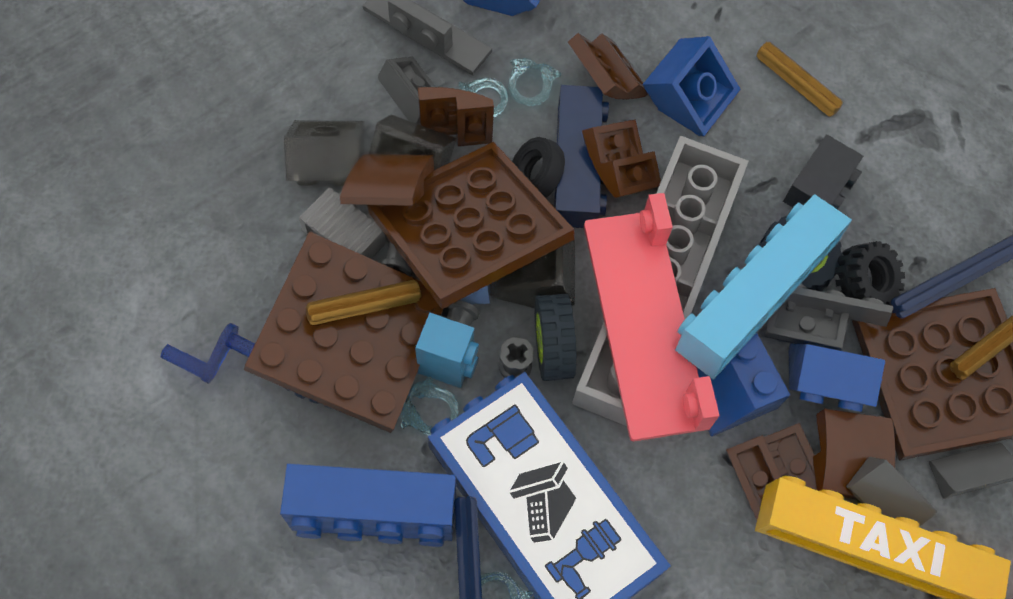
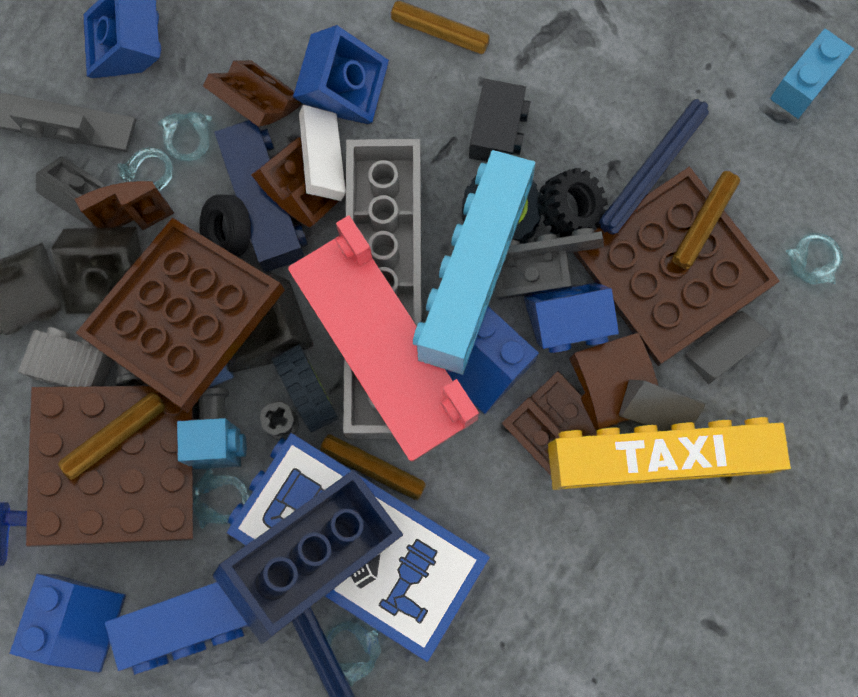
camera: 15 degrees left, 10 degrees up
(244, 459) = (66, 623): none -> blue slope
(387, 180) = (84, 303): reddish brown slope -> none
(502, 480) = (306, 555): none -> dark blue brick
(598, 451) = (373, 467): none -> pearl gold axle
(650, 141) = (321, 153): none -> white tile

